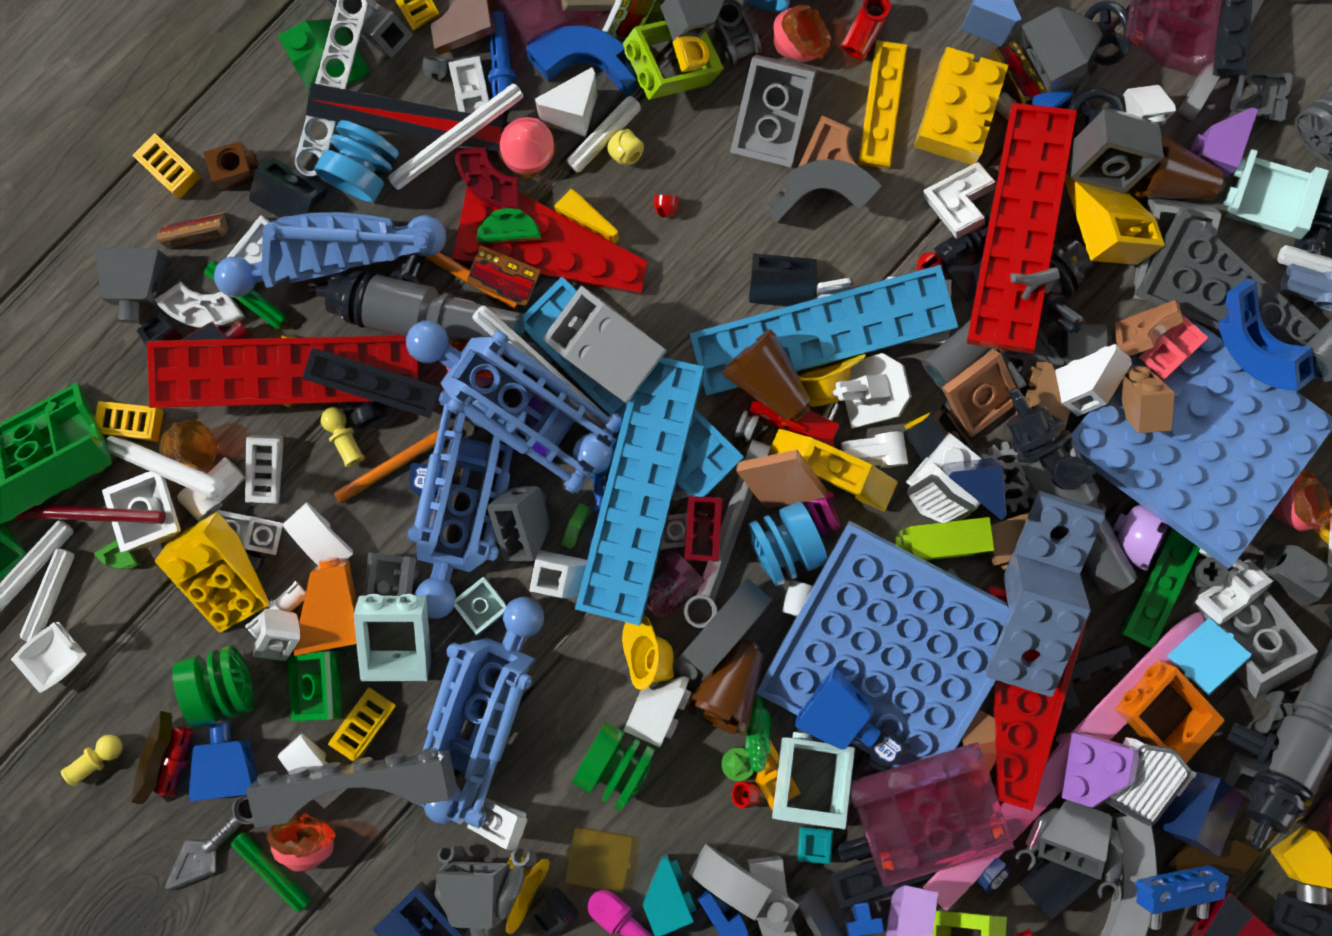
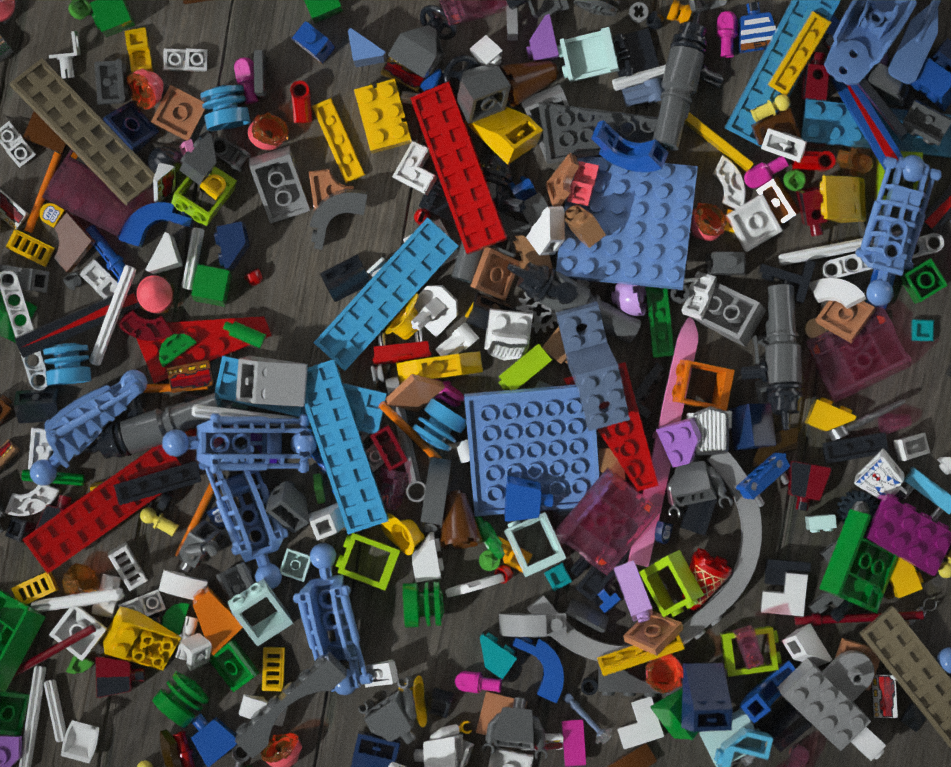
camera: 25 degrees left, 5 degrees up
(152, 600) = (115, 675): none -> torso
(280, 574) = (175, 617): none -> green tile
(372, 498) = (199, 544): none -> dark grey torso
(567, 624) = (349, 543): none -> lime window
(581, 212) = (207, 312): yellow slope -> none
(598, 859) = (447, 658): clear yellow piece -> none
(605, 178) = (211, 285): none -> green head
(609, 266) = (245, 333): none -> green cylinder
(625, 147) = (209, 258): light yellow piece -> none
(667, 143) = (233, 243): none -> dark blue slope
(698, 785) = (474, 585): none -> white tile
(741, 523) = (408, 430): none -> orange bar
(769, 377) = (372, 341): reddish brown cone -> none
(888, 748) = (563, 500): tile -> none
(982, 481) = (520, 330): dark blue slope -> none
(1034, 280) = (481, 199): dark grey bar -> none
(1089, 307) = (523, 190): none -> blue tile
(1209, 656) = (705, 341): medium azure piece -> none

